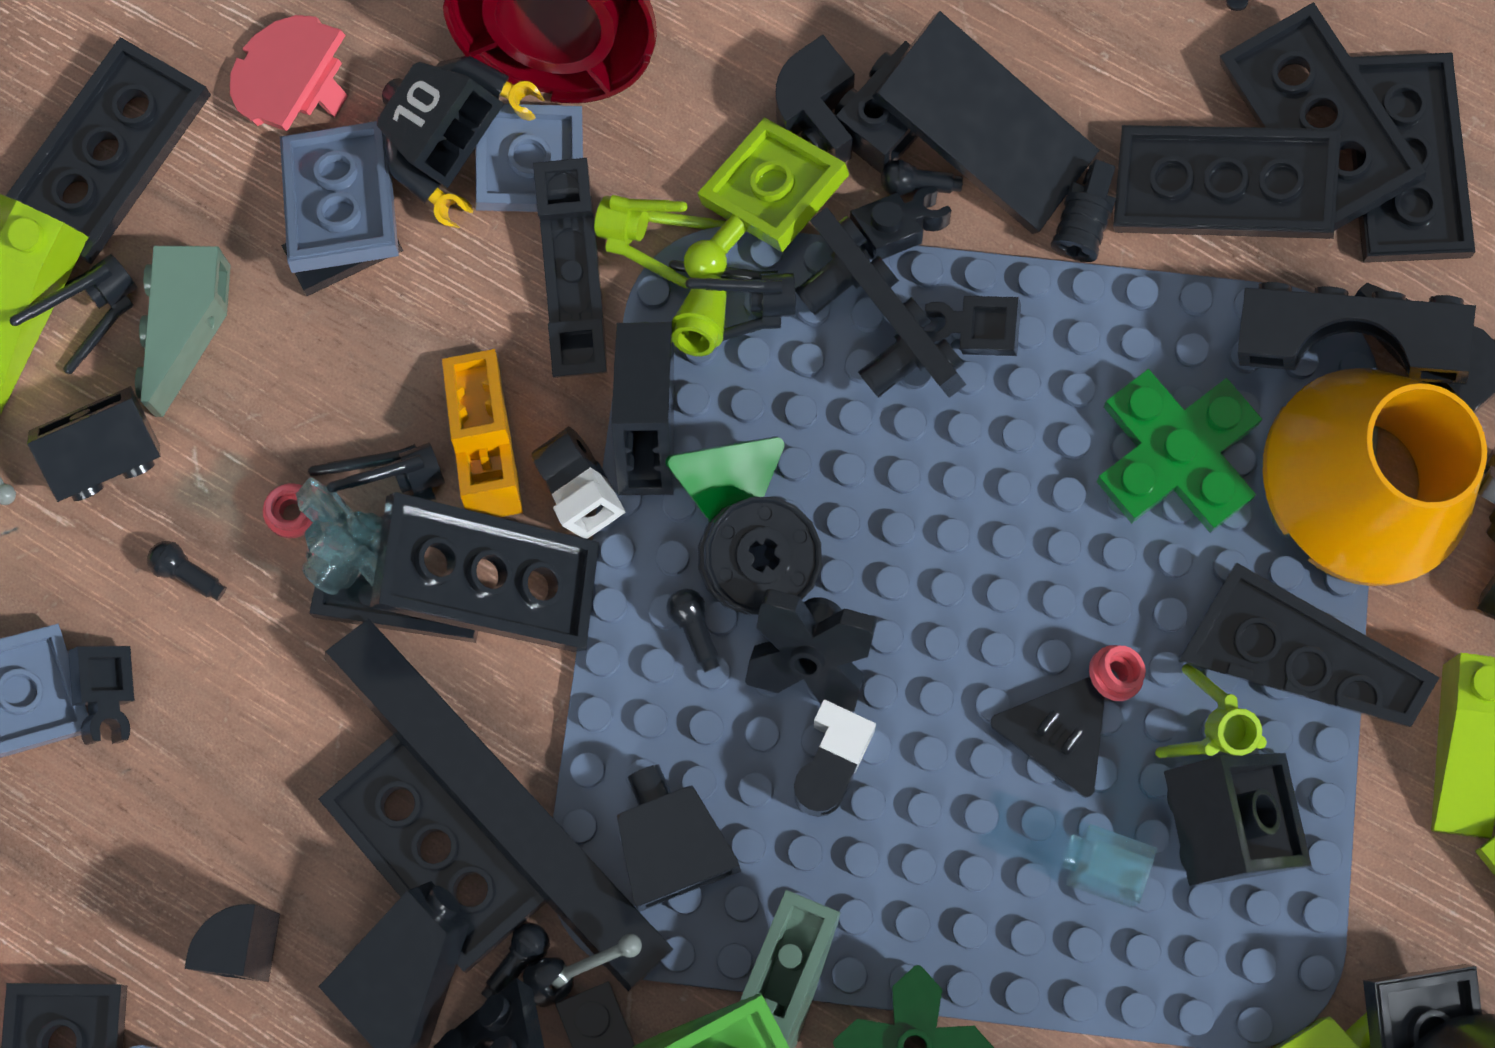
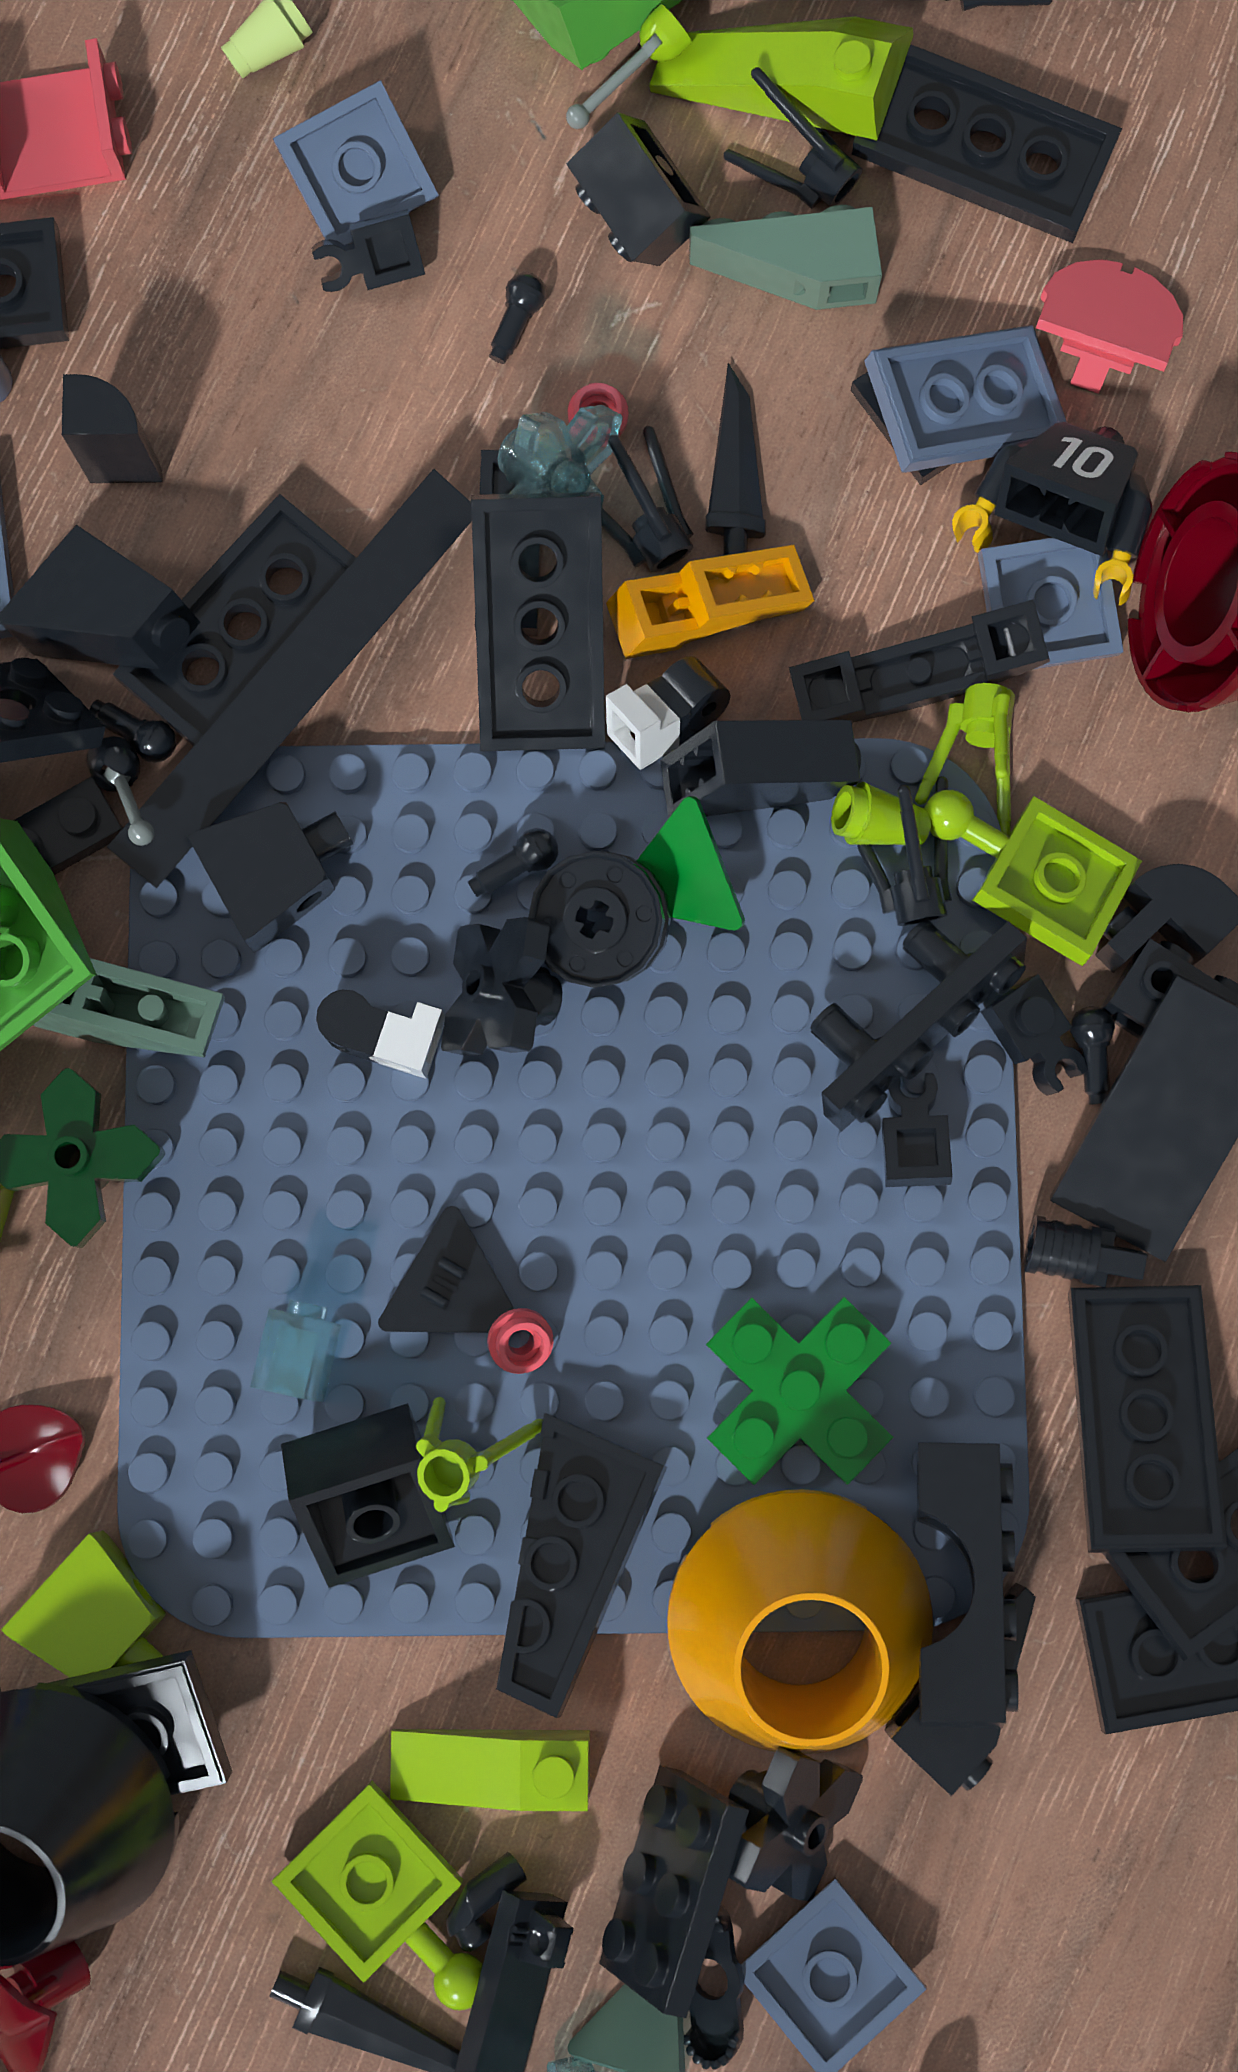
camera: 80 degrees right, 5 degrees up
(384, 403) = (735, 490): none -> black bar

